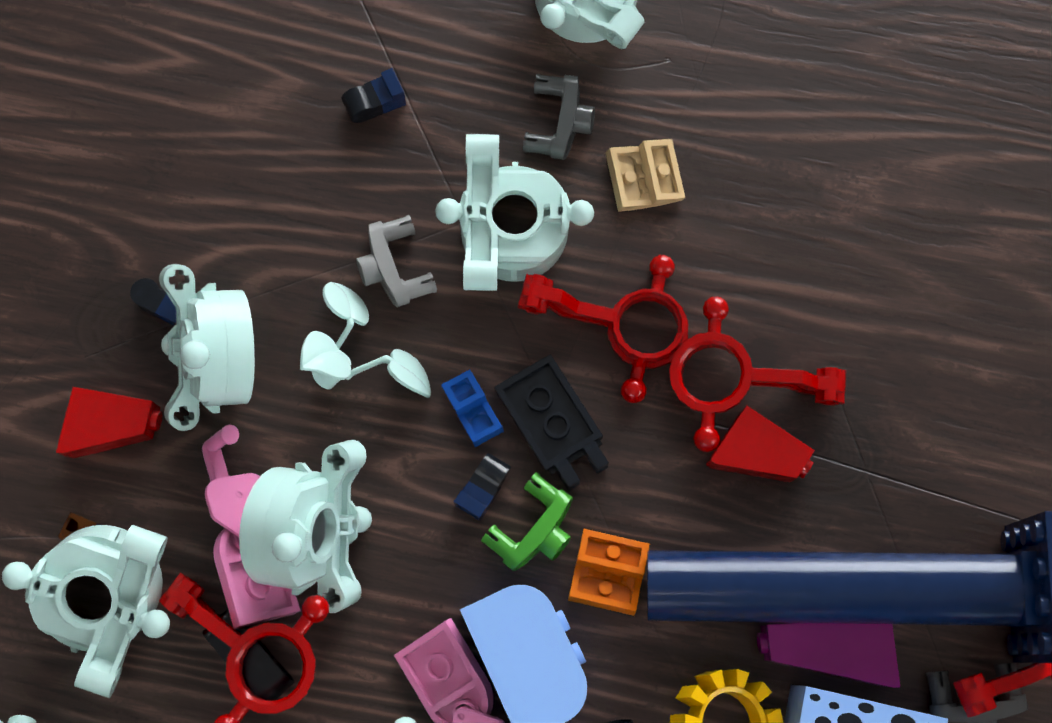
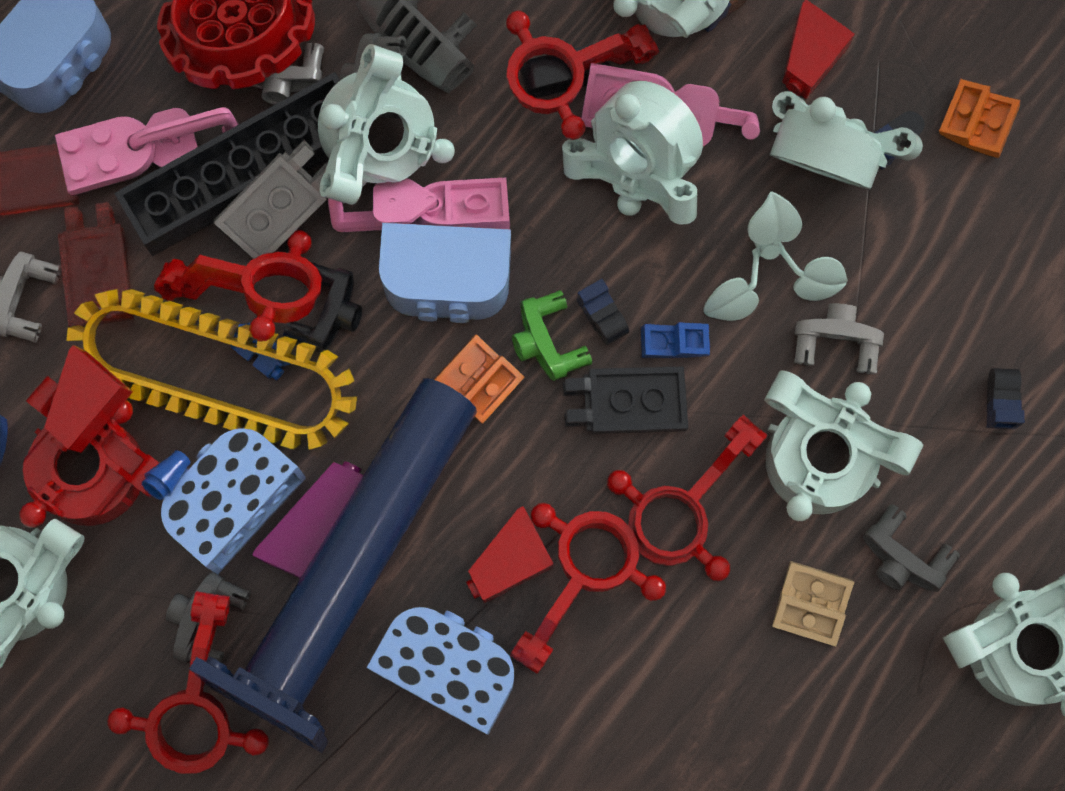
camera: 120 degrees right, 0 degrees up
(103, 237) = (979, 118): none -> orange slope
(892, 450) = (446, 665): none -> light blue brick

